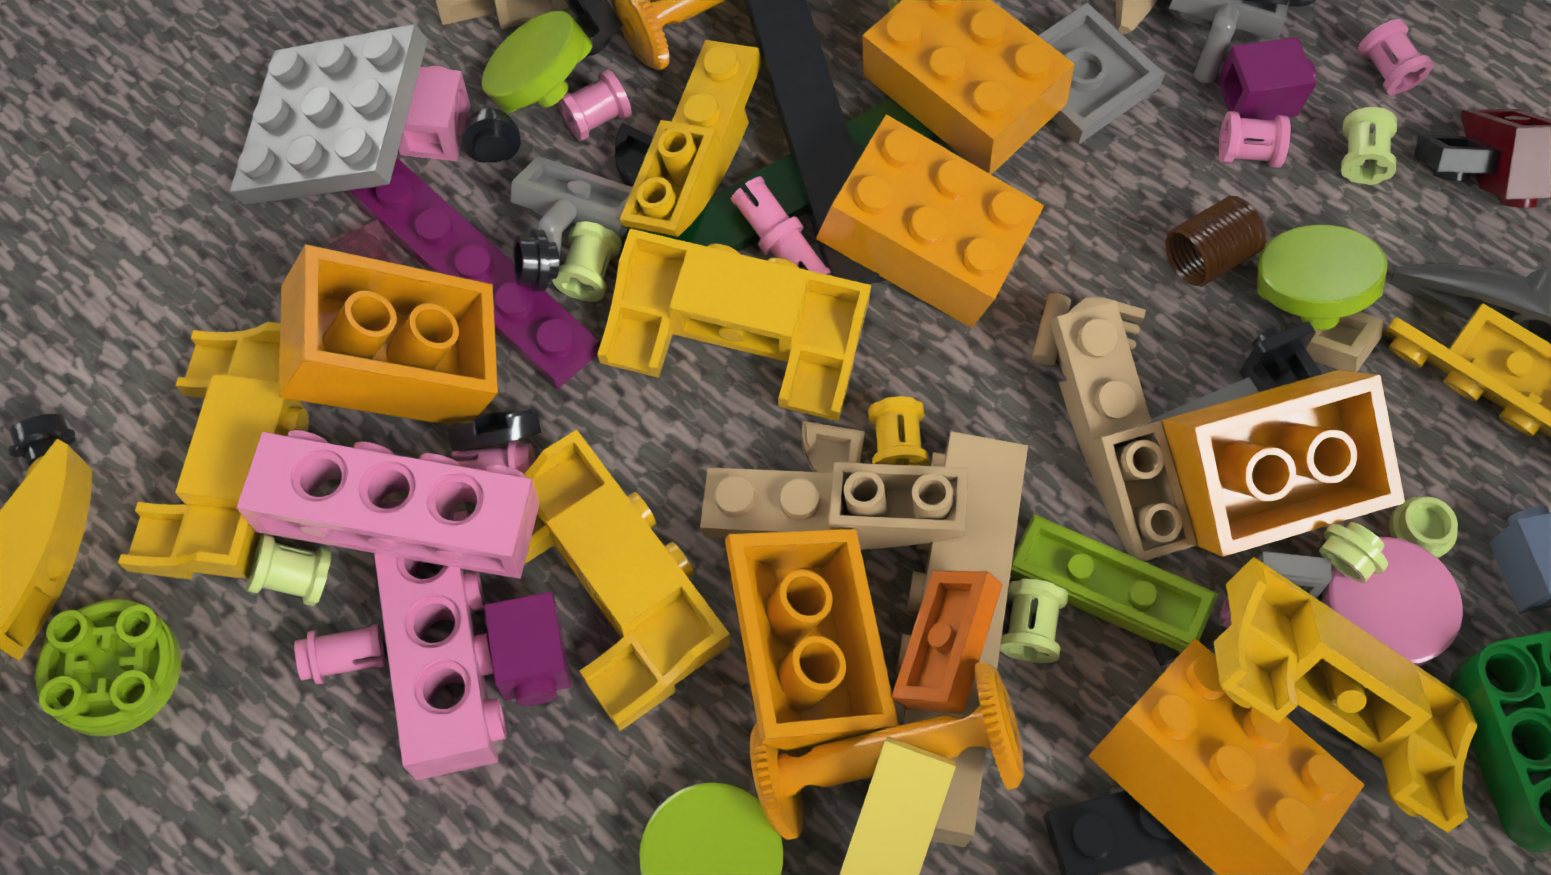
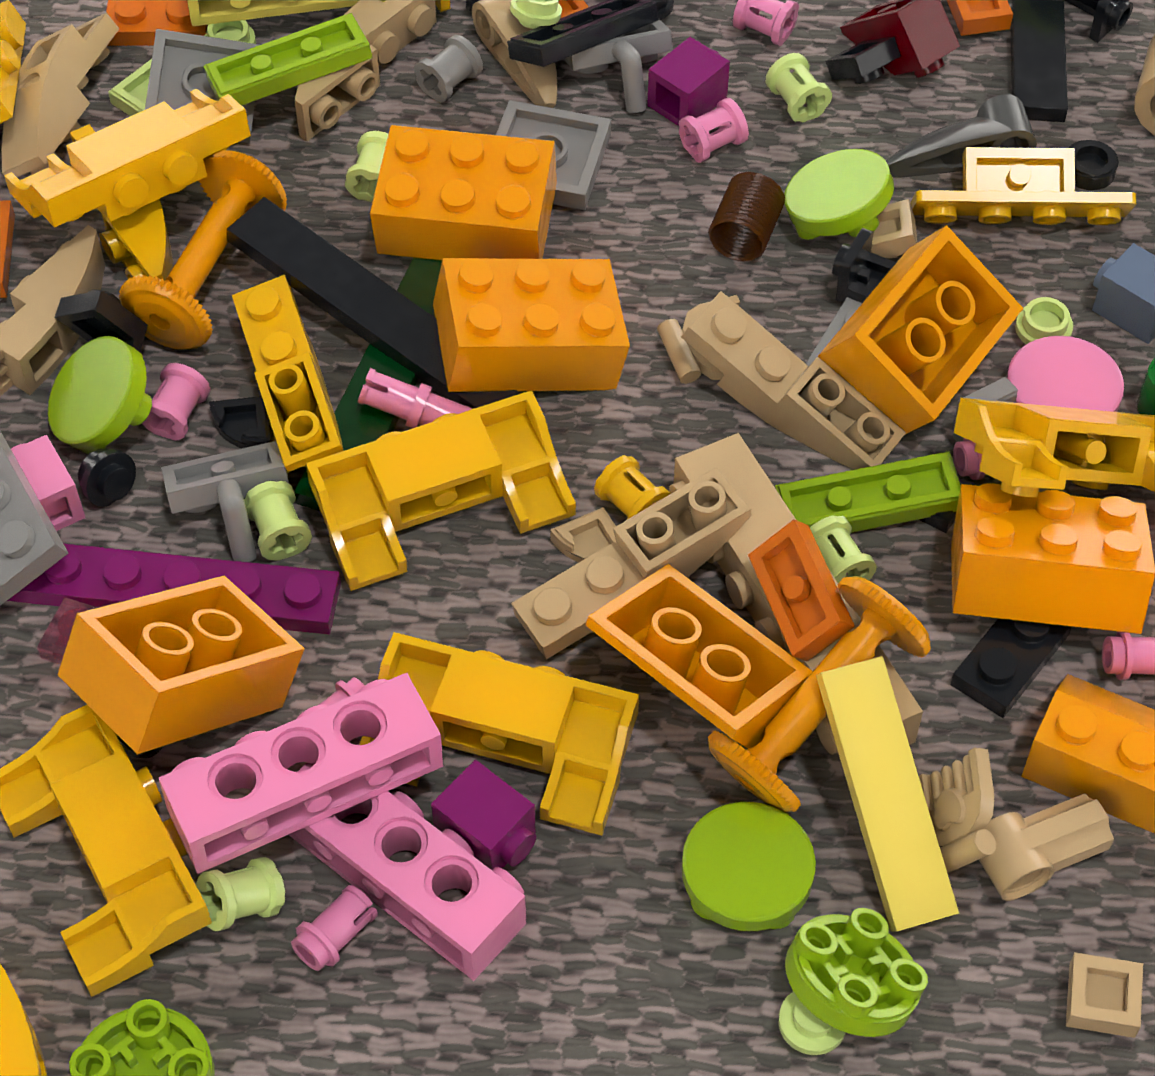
camera: 35 degrees left, 10 degrees down
(493, 428) = (316, 682): black tile -> none
(535, 260) = (242, 537): black plate -> none
(1354, 551) = (1017, 361): yellowish green plate -> none

